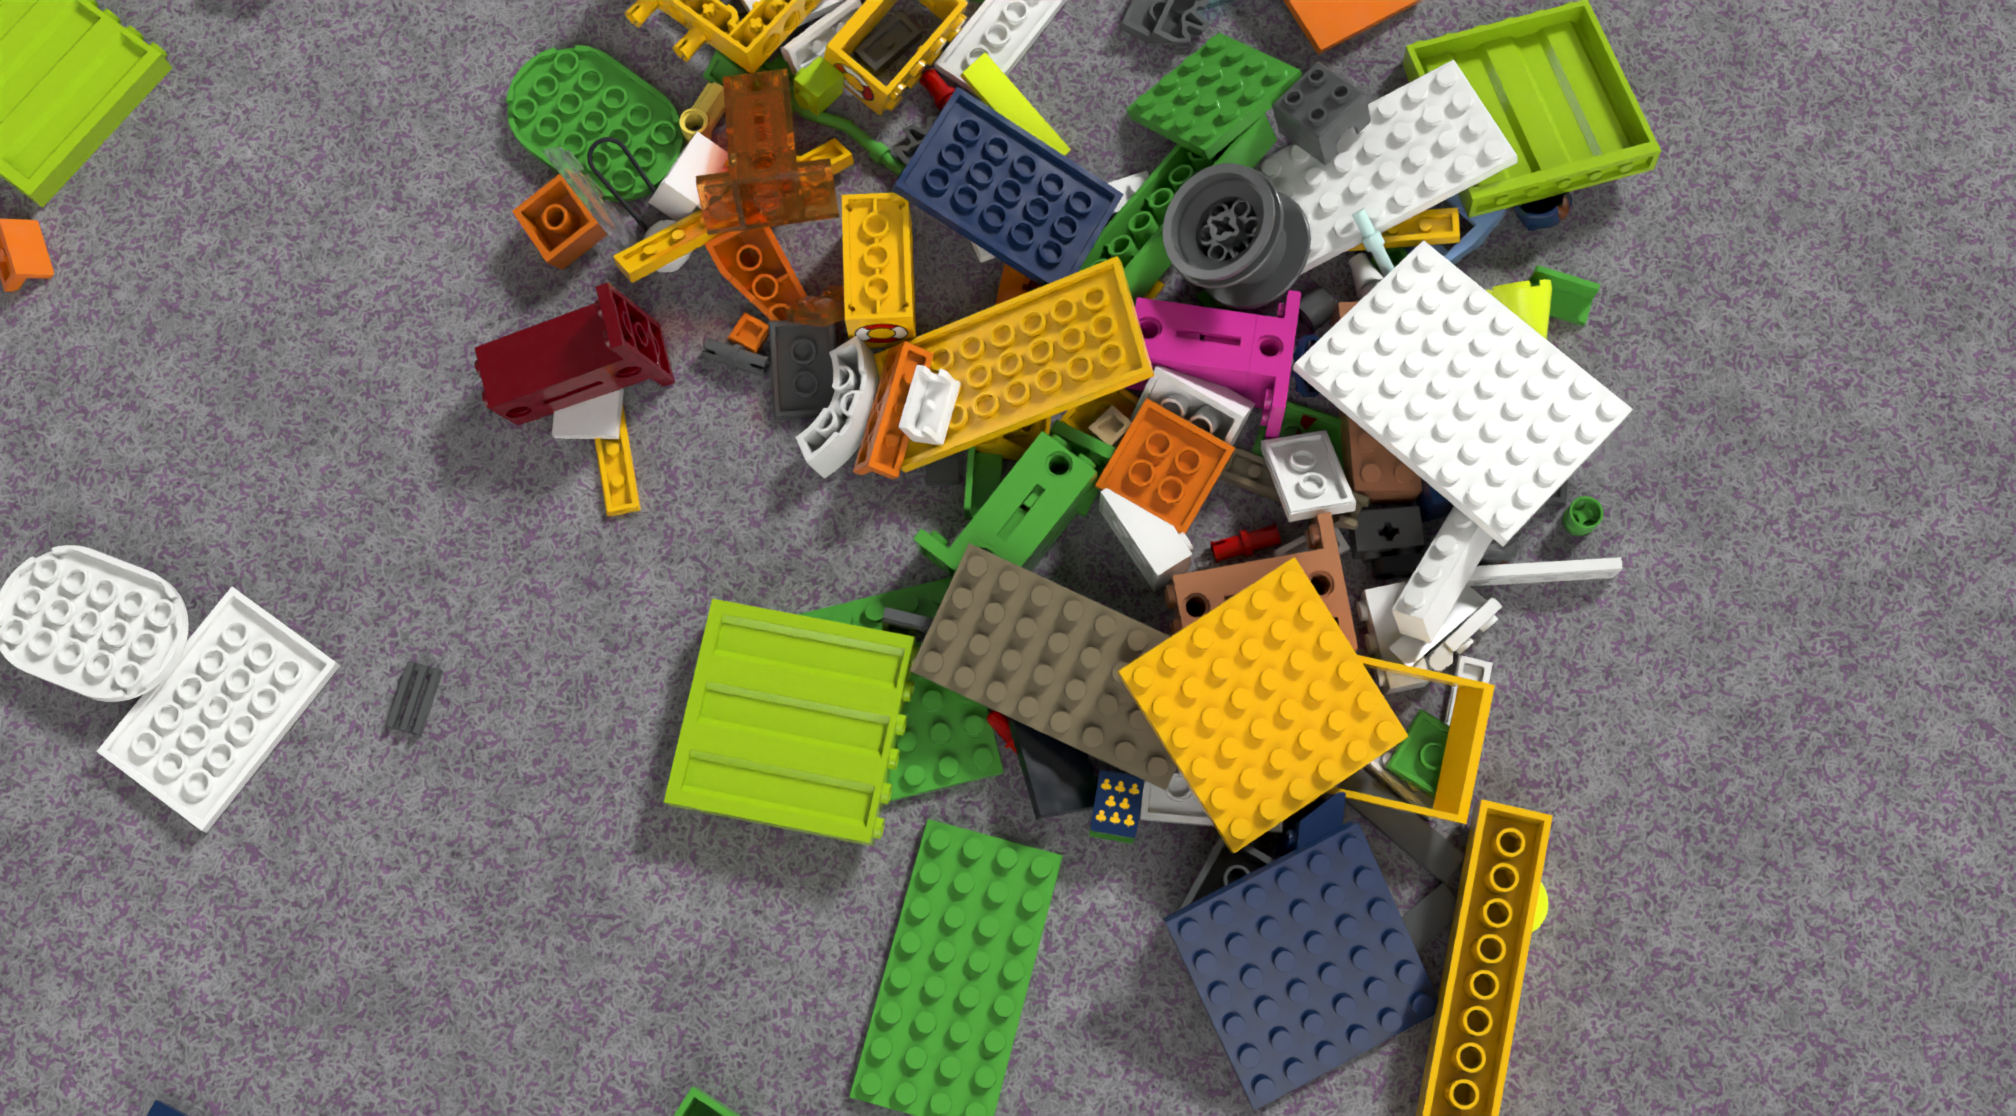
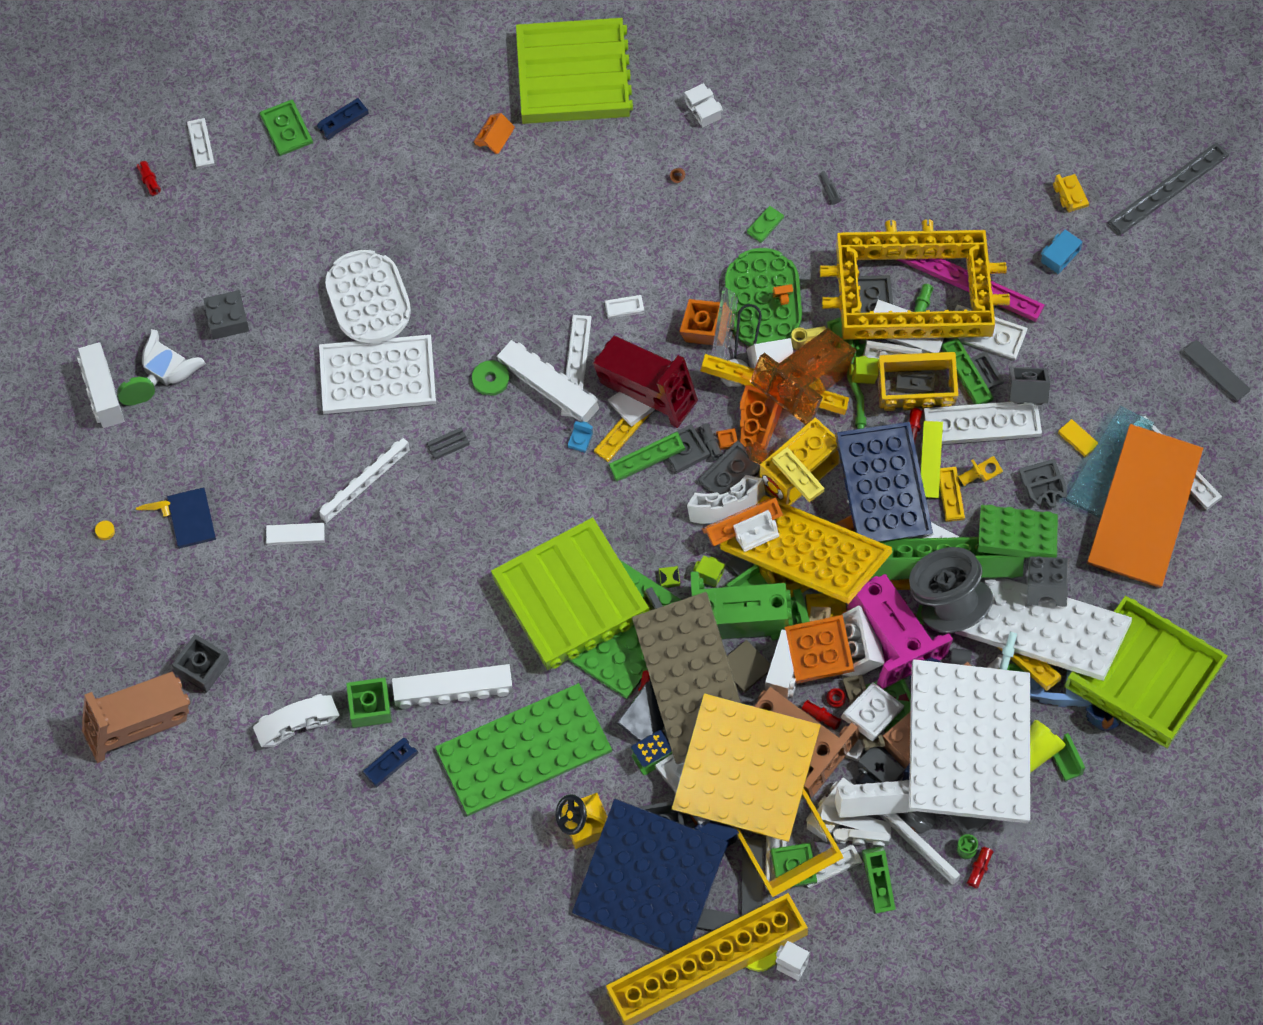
camera: 50 degrees right, 10 degrees down
(322, 82) = (677, 179): none -> dark orange hinge
(350, 1026) = (295, 534): none -> white tile
(355, 551) = (485, 369): none -> bright green tile
(361, 876) = (368, 476): none -> white plate
(438, 302) = (624, 306): none -> white tile
(453, 490) = (548, 382): none -> white brick
(463, 435) = (578, 351): none -> white tile
(493, 34) = (765, 224): none -> bright green plate
(571, 515) = (581, 436): none -> dark azure bracket
(616, 91) = (783, 292): none -> orange tile
(682, 454) = (647, 456): none -> bright green tile
(714, 398) = (694, 452): none -> dark grey plate
(780, 998) = (452, 686): none -> white brick
(879, 571) = (669, 577): none -> lime tile
(907, 283) = (798, 474): none -> light yellow plate
(918, 511) = (710, 570): none -> lime brick
(1079, 74) = (978, 471): none -> yellow bracket
(1081, 132) = (951, 494): none -> yellow tile
(1096, 574) = (747, 666): none -> dark tan tile
(1139, 983) = (582, 818): none -> yellow piece
(1240, 495) = (838, 692): none -> red plate
(1535, 661) = (878, 879): none -> bright green slope
(1573, 872) = (792, 960): none -> white piece
(1621, 525) = (980, 867): none -> red pin

